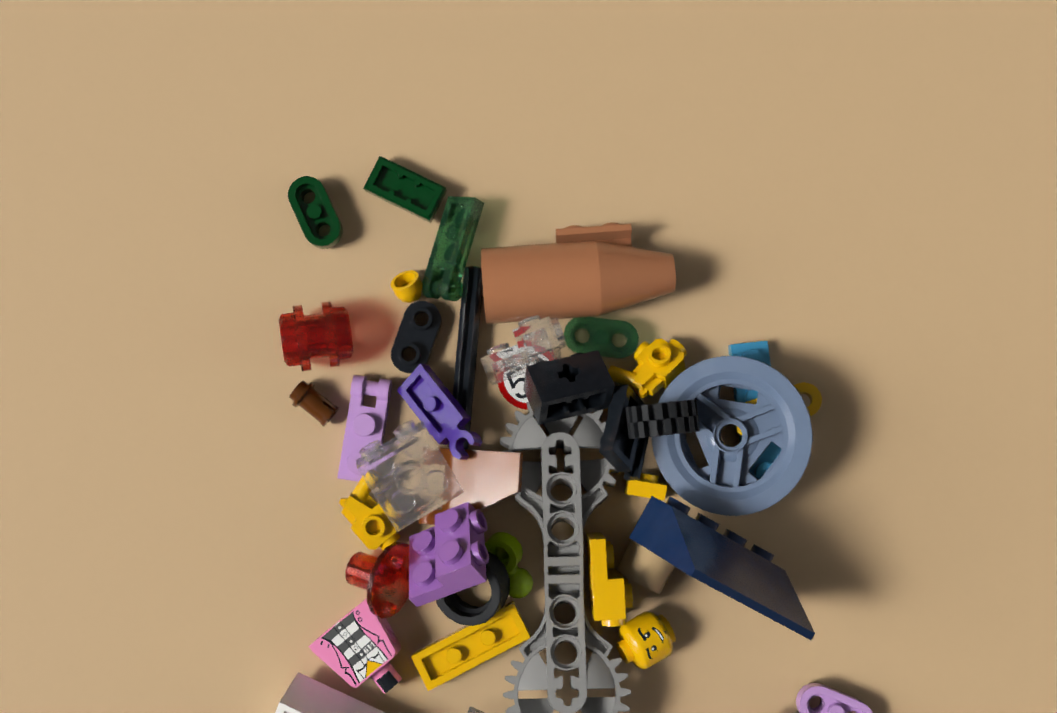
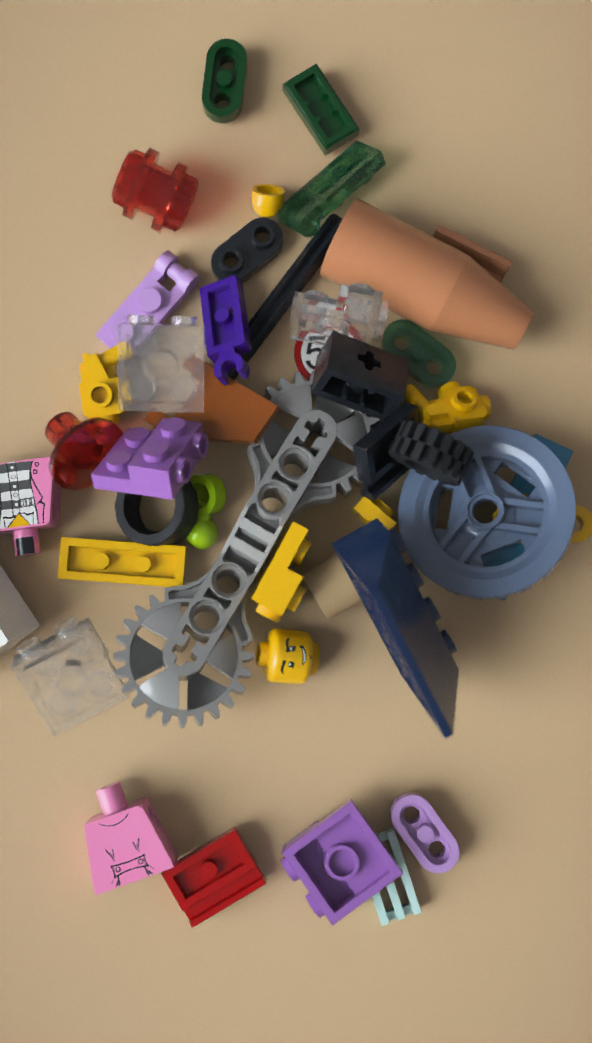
camera: 25 degrees right, 0 degrees up
(313, 402) = (115, 252): reddish brown pin -> none

